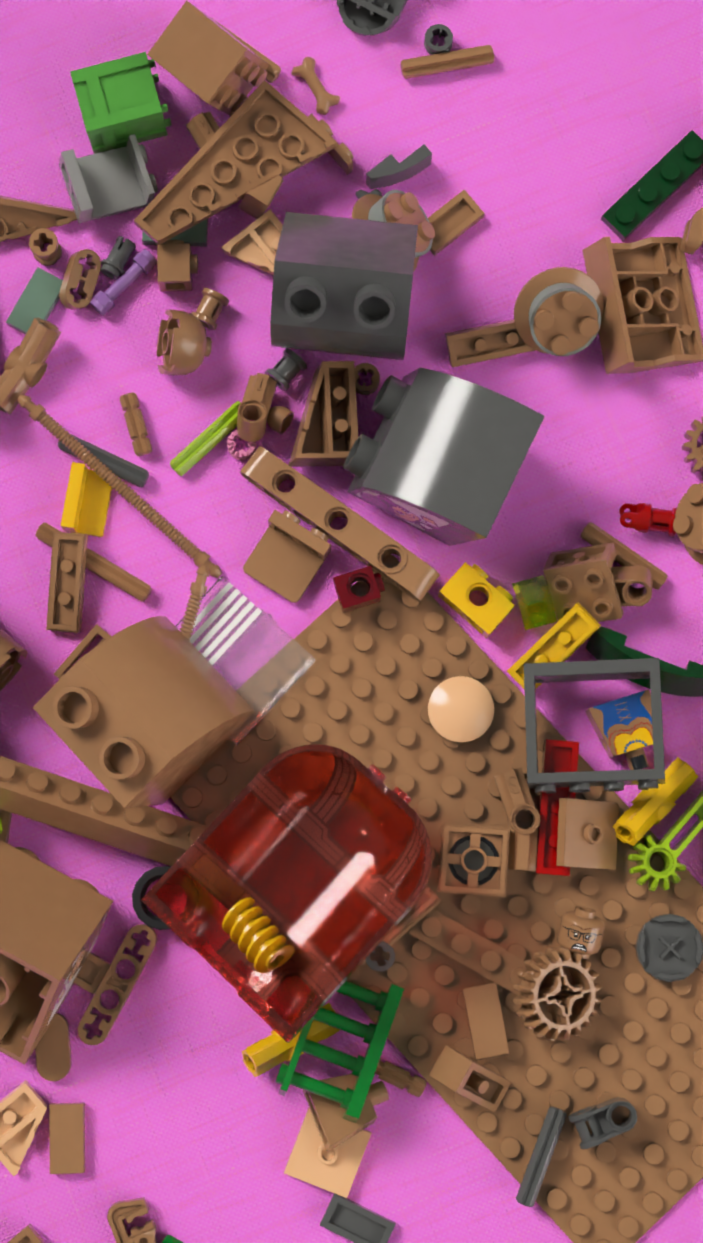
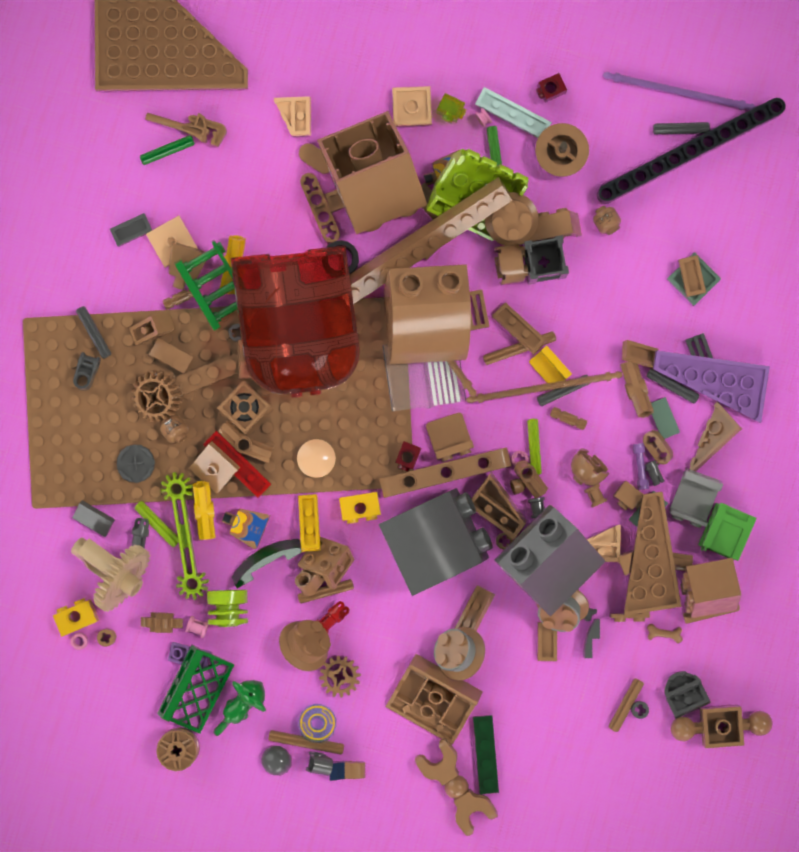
camera: 130 degrees right, 5 degrees up
(36, 243) = (692, 442): medium nougat bush -> none
(67, 1138) = (271, 133): medium nougat tile -> none
(255, 937) = (289, 282): yellow piece -> none
(534, 602) = (337, 531): clear neon green brick -> none
(592, 671) = (283, 530): dark grey window -> none

